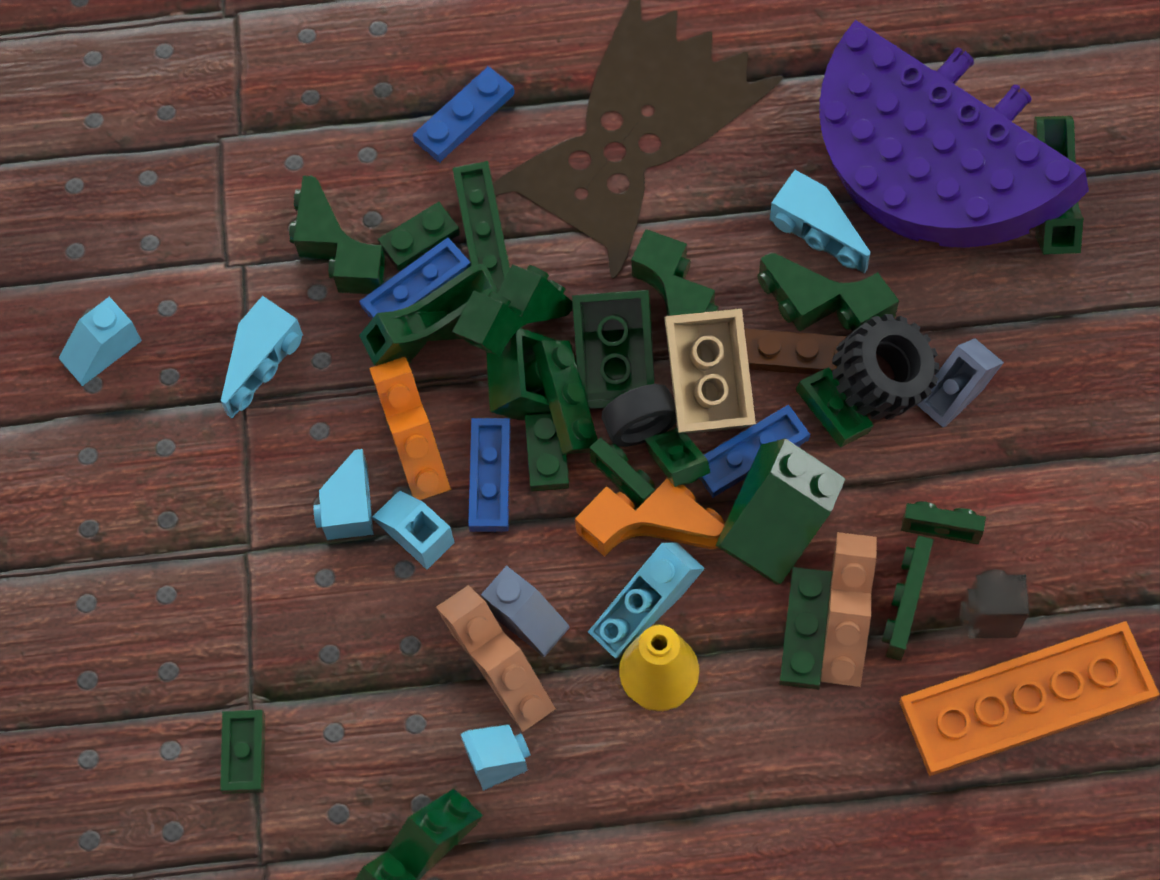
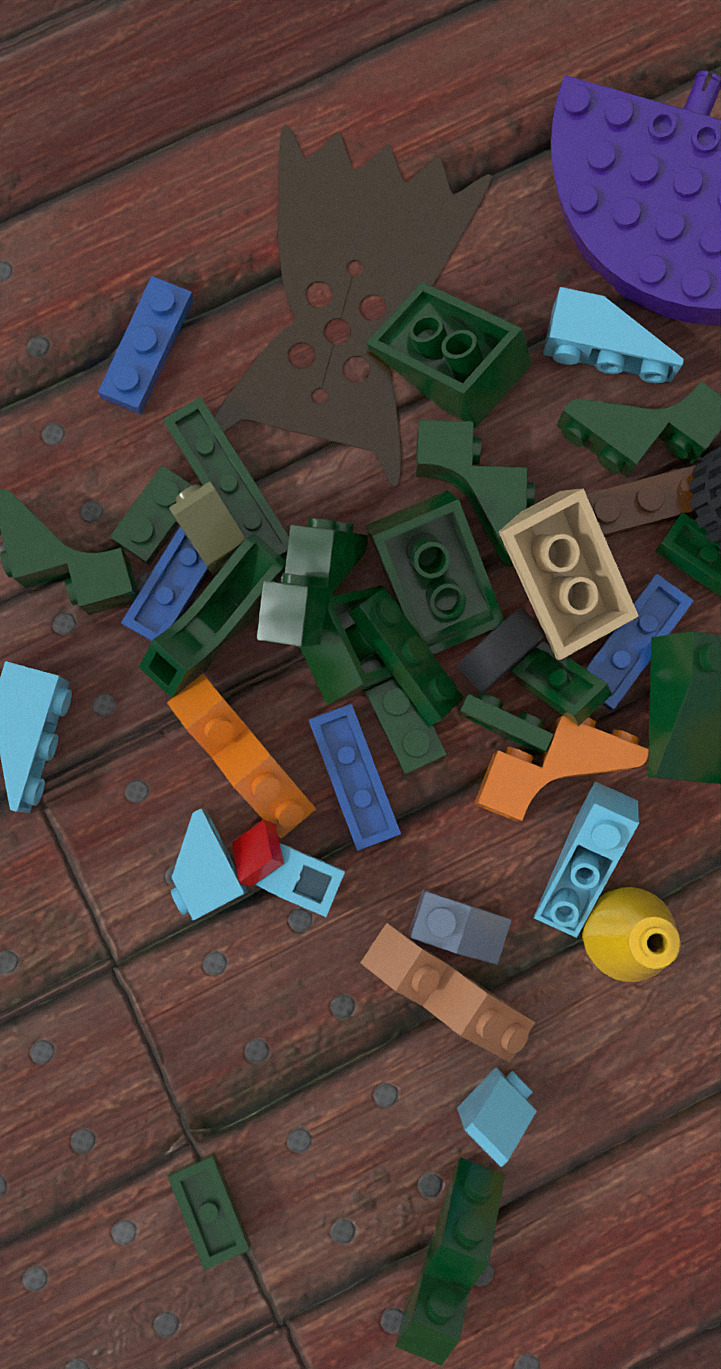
camera: 25 degrees left, 15 degrees up
(391, 497) = (257, 853): none -> red tile
(450, 243) = (207, 525): none -> olive slope
(695, 193) = (452, 352): none -> dark green slope

